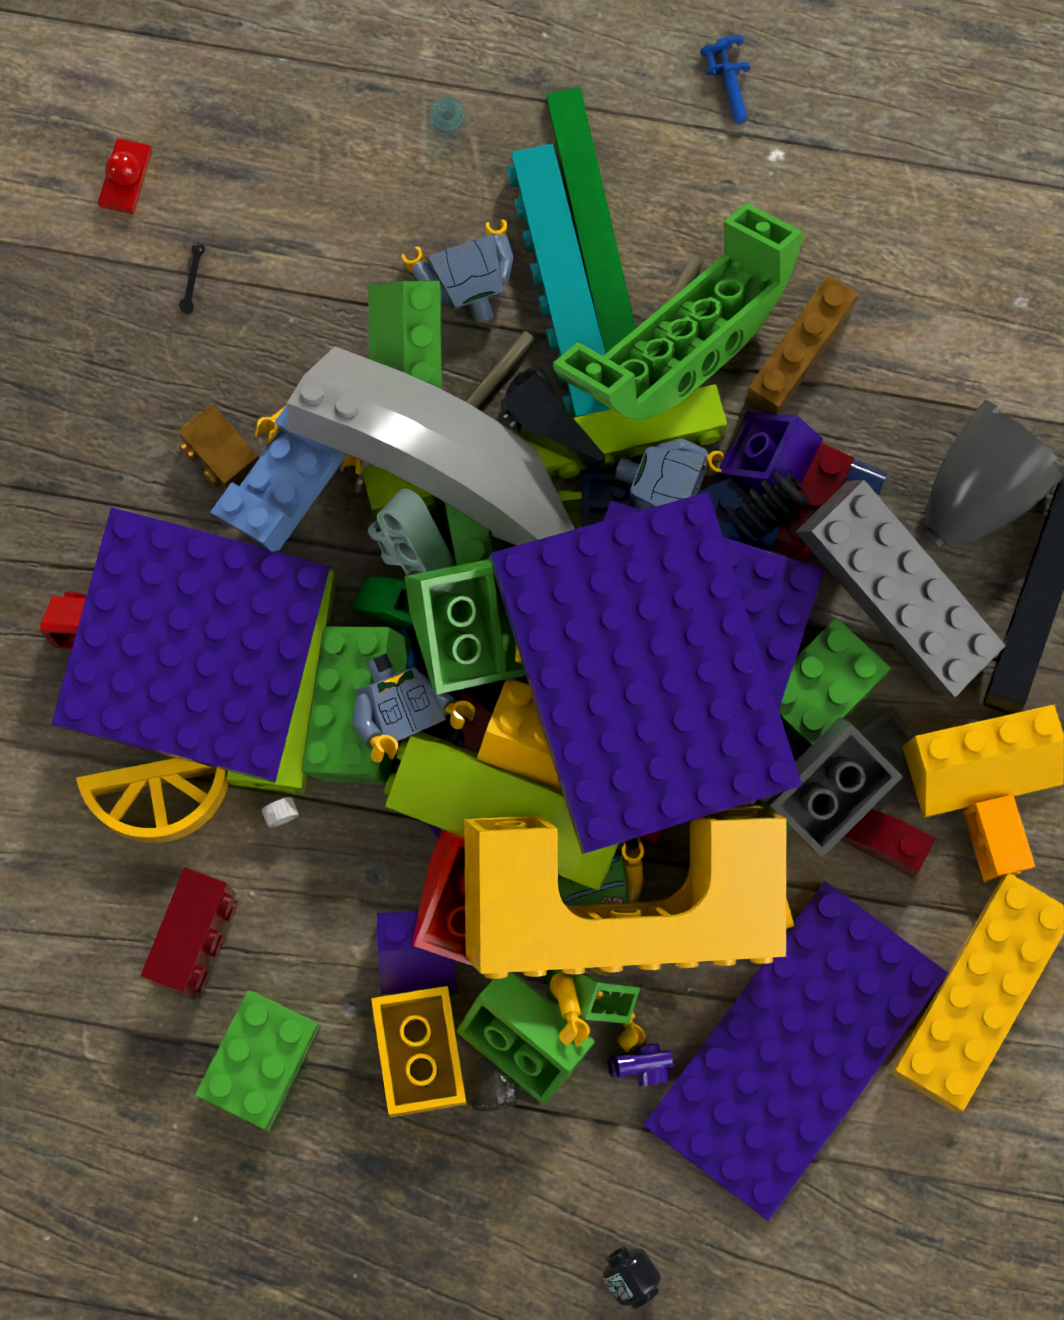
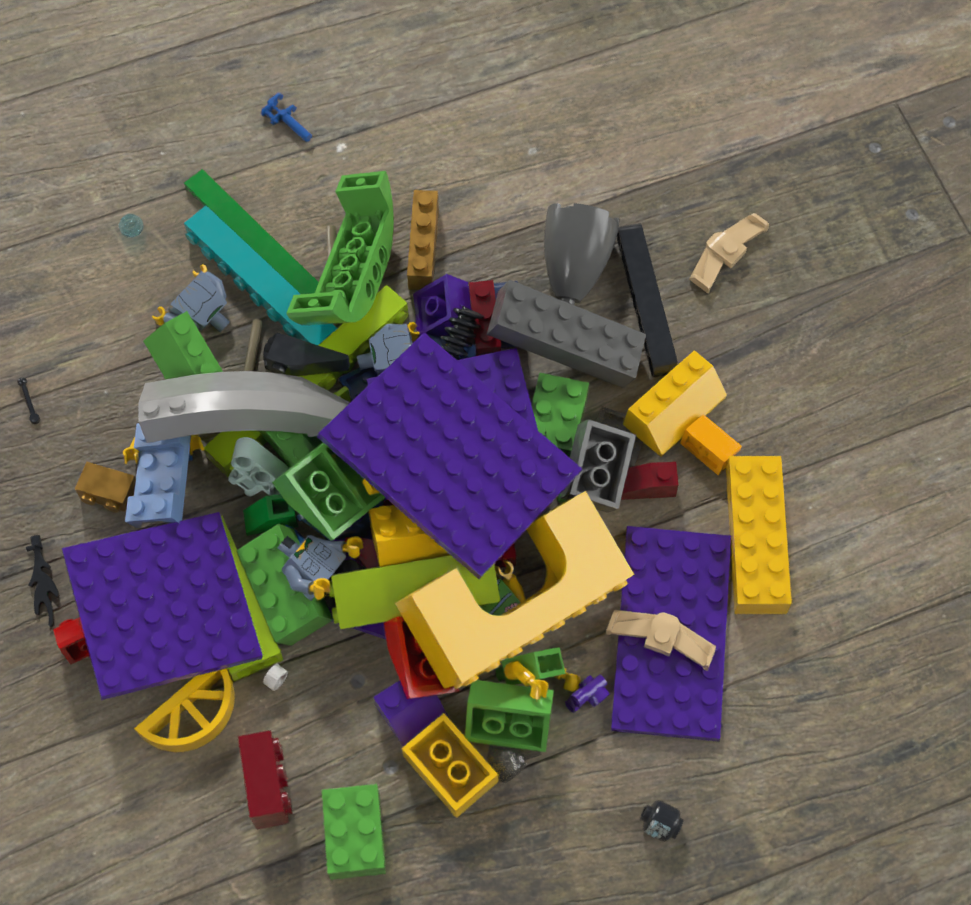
camera: 30 degrees left, 10 degrees down
(80, 528) = (45, 583): none -> black piece
(778, 1049) = (662, 635): none -> tan plate

